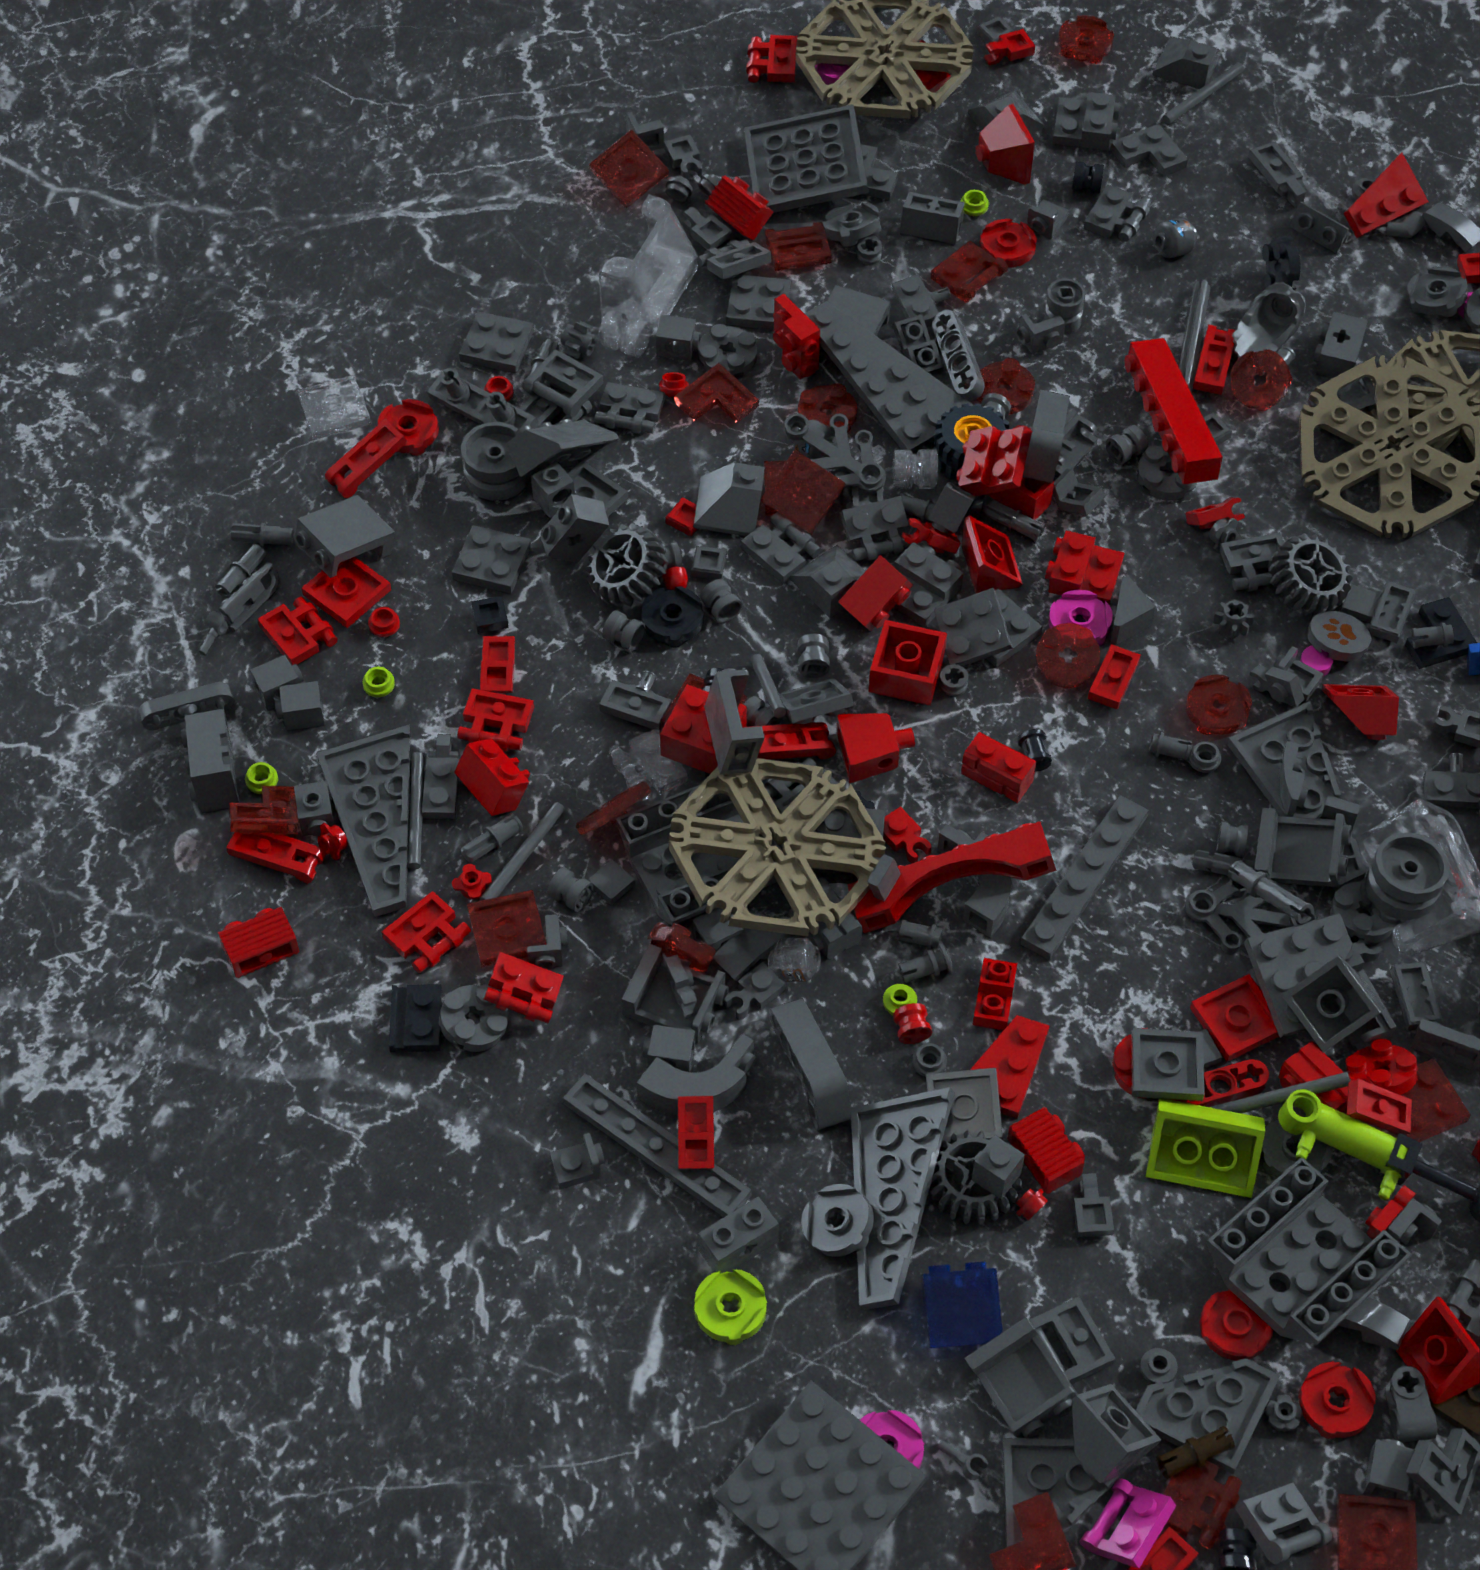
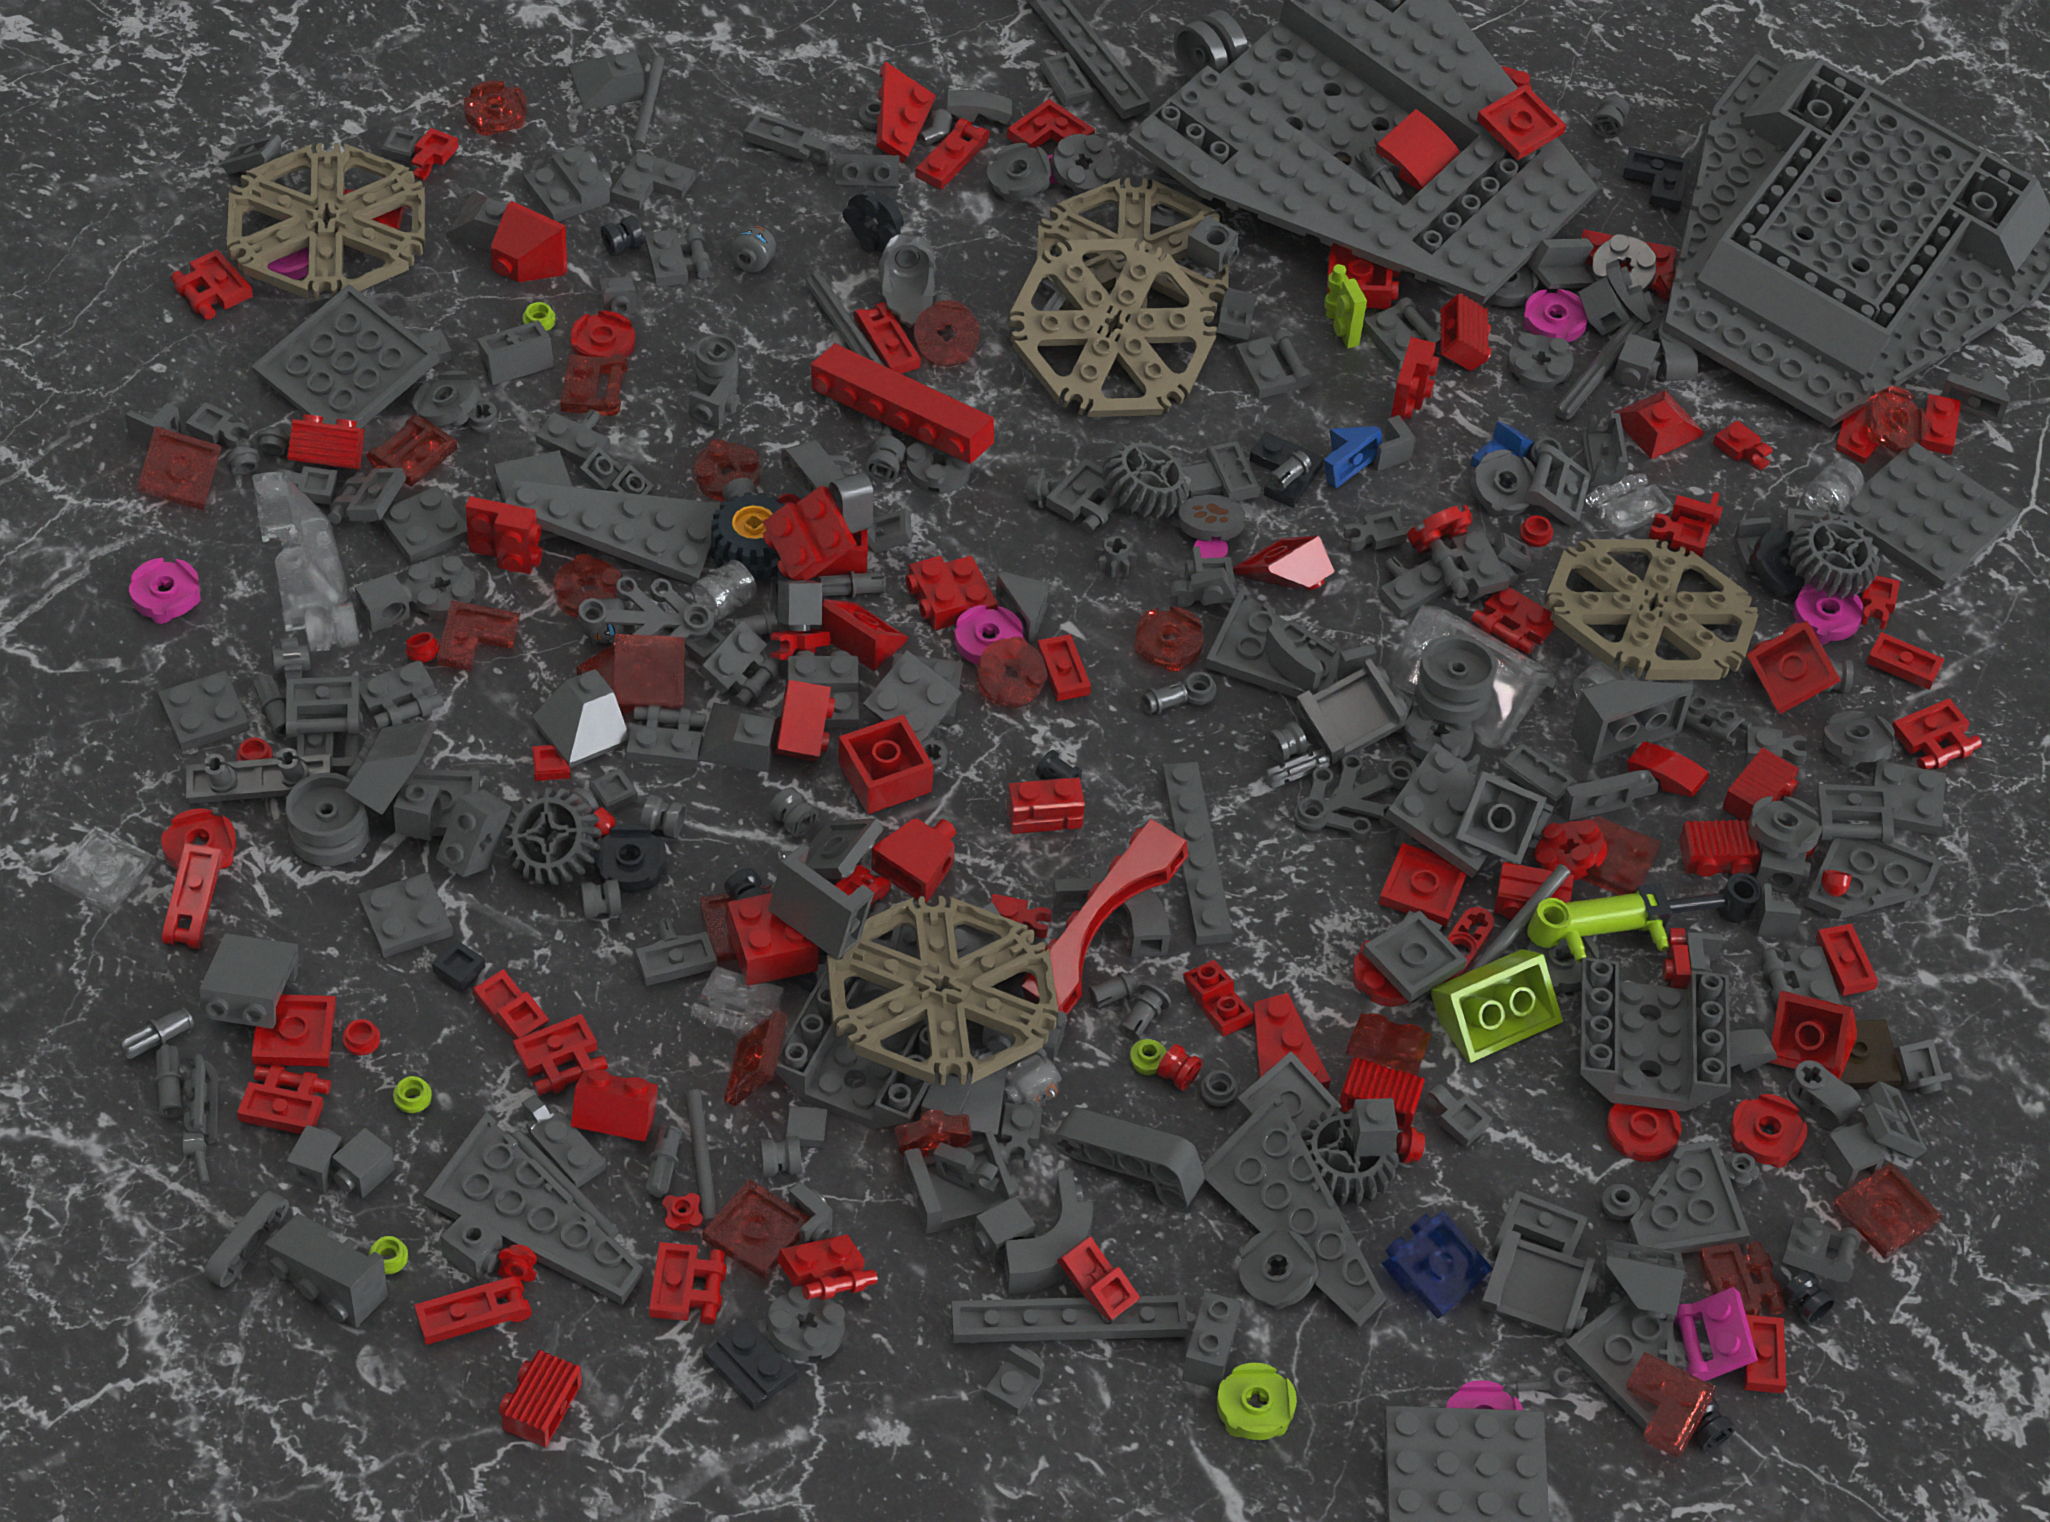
camera: 45 degrees left, 5 degrees down
(273, 815) = (438, 1276): clear red plate -> none
(547, 258) = (168, 604): none -> dark pink plate
(768, 685) = (769, 858): dark grey bar -> none
(884, 877) = (1058, 955): dark grey tile -> none
(956, 356) = (662, 465): dark grey beam -> none
(1086, 1116) = (1389, 1043): none -> clear red plate
(1195, 1452) = (1715, 1242): dark brown pin -> none
(1207, 516) = (1011, 478): red plate -> none
(1260, 885) = (1366, 761): dark grey pin -> none
(1341, 344) = (984, 266): dark grey brick -> none
(1379, 1107) = (1602, 877): red plate -> none
(1400, 251) = (952, 154): none -> red plate

